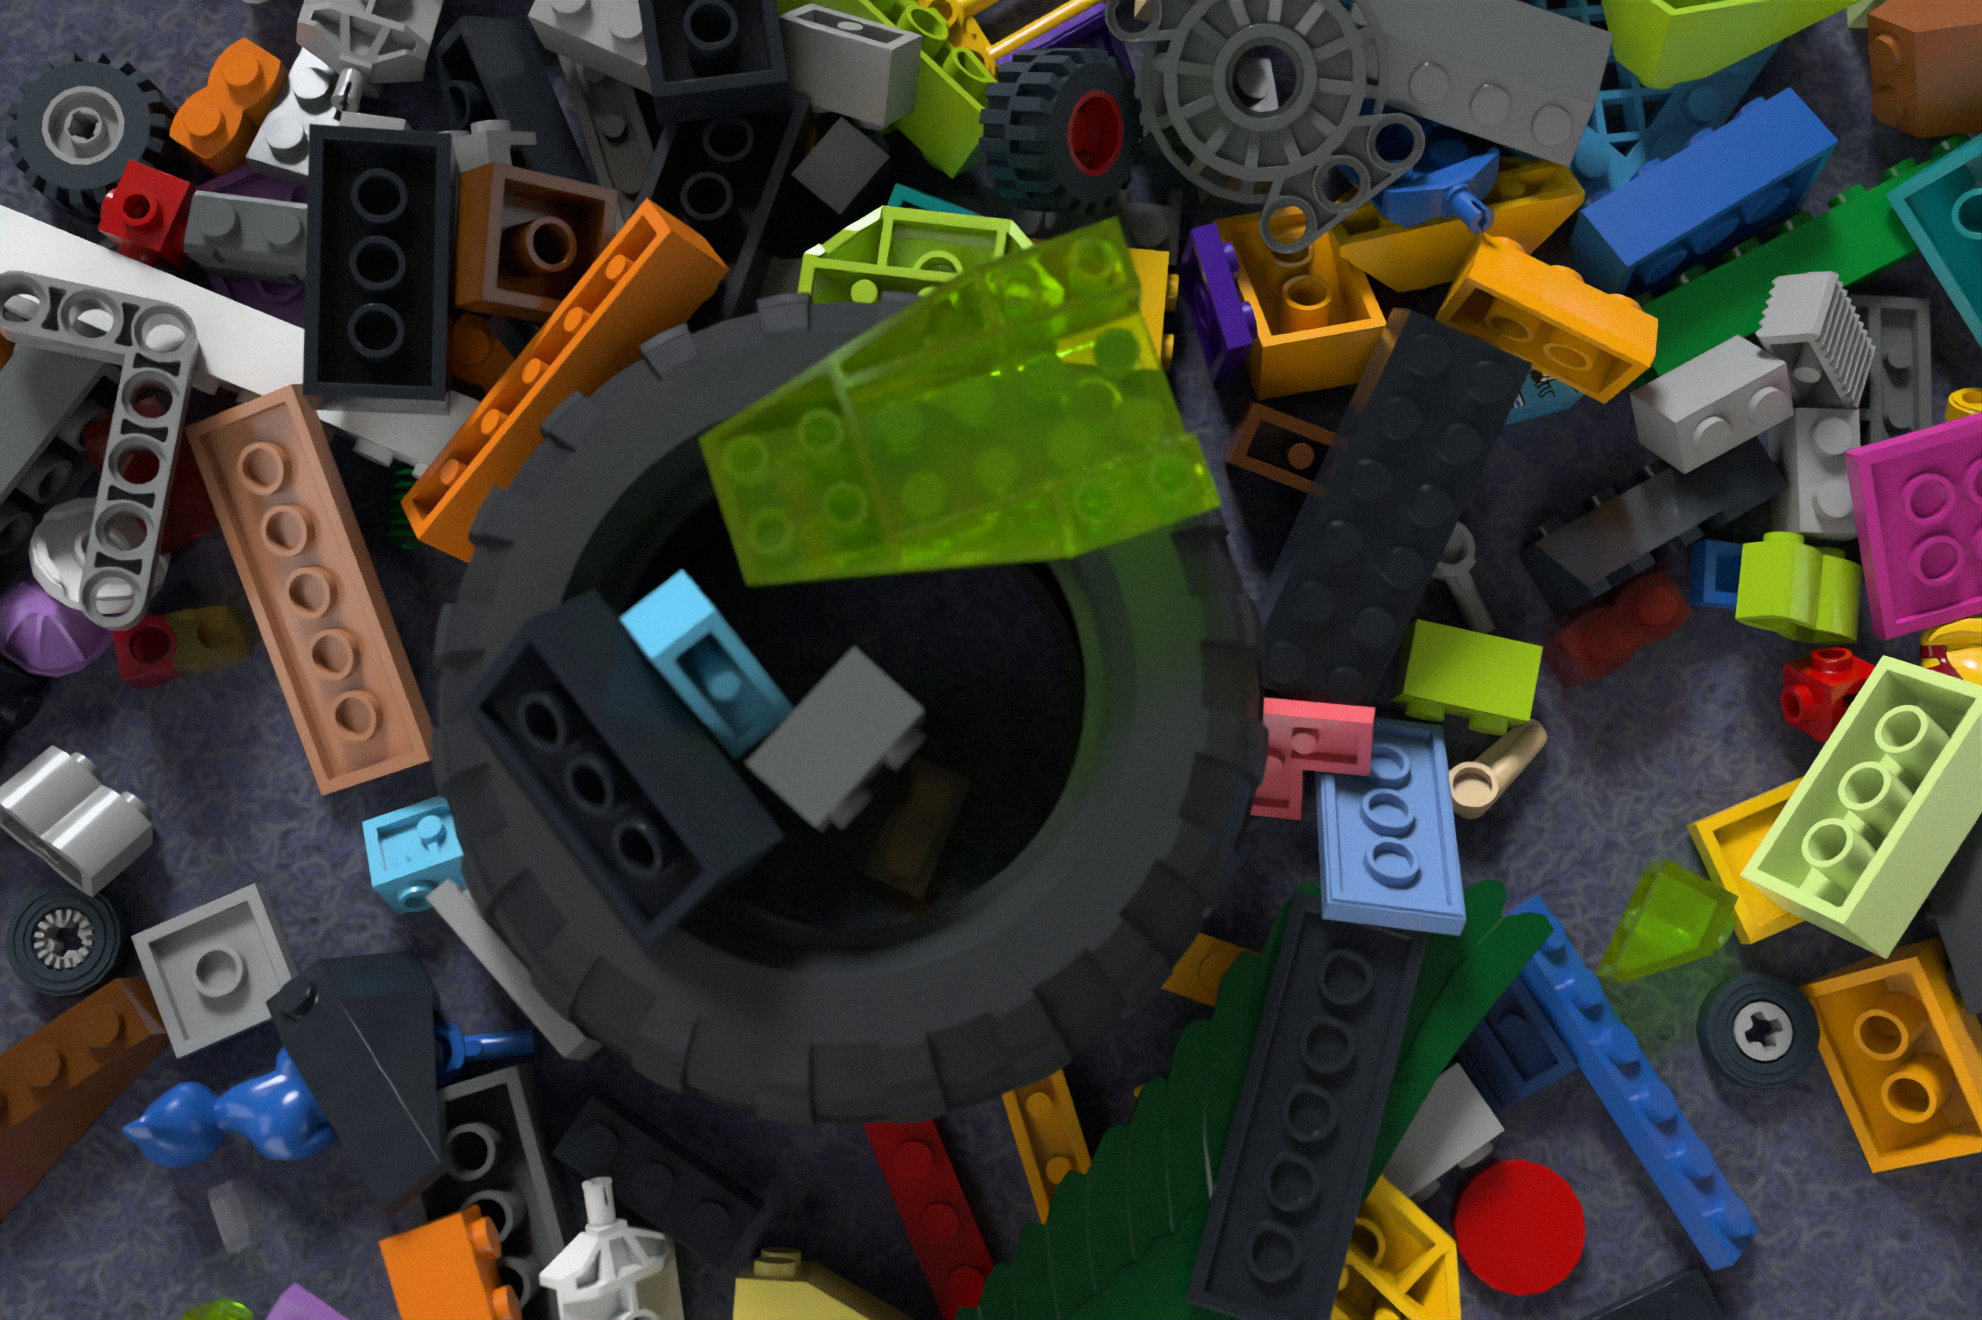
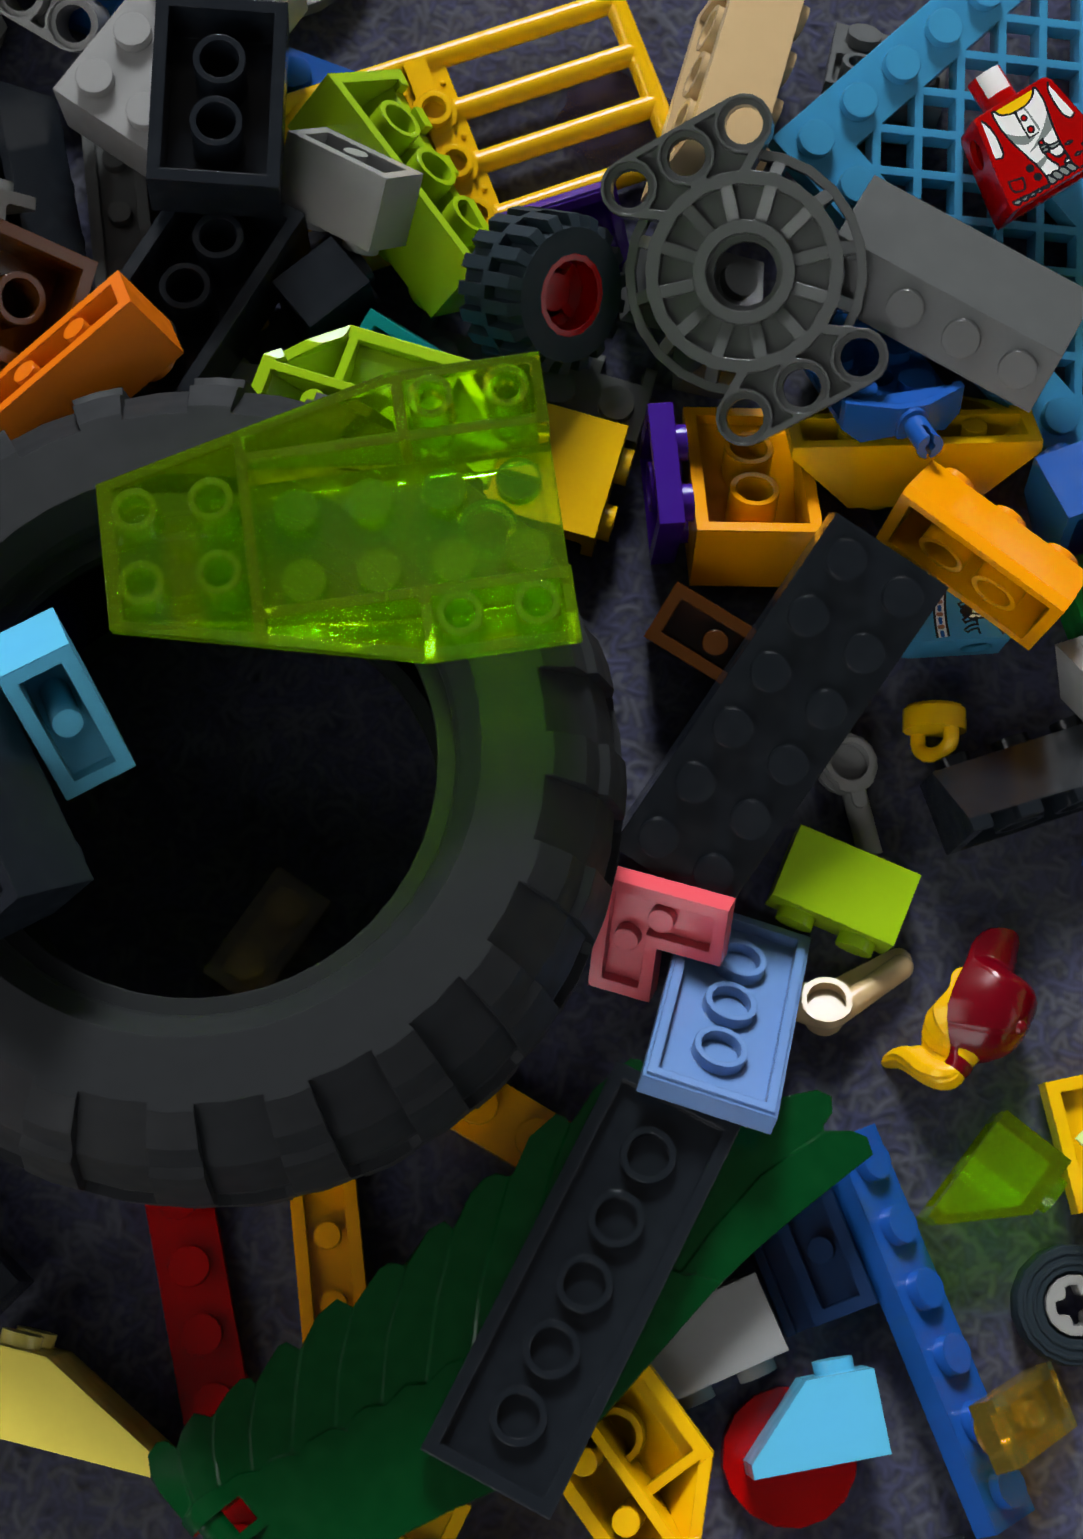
camera: 10 degrees right, 5 degrees down
(840, 742) = (168, 801): dark grey brick -> none
(1520, 489) = (934, 719): none -> yellow tile
(1548, 1192) = (822, 1422): none -> medium azure slope
(1615, 630) = (988, 876): clear red brick -> none
(1621, 778) = (975, 1019): none -> dark red hair
(1736, 1150) = (1022, 1418): none -> clear yellow plate

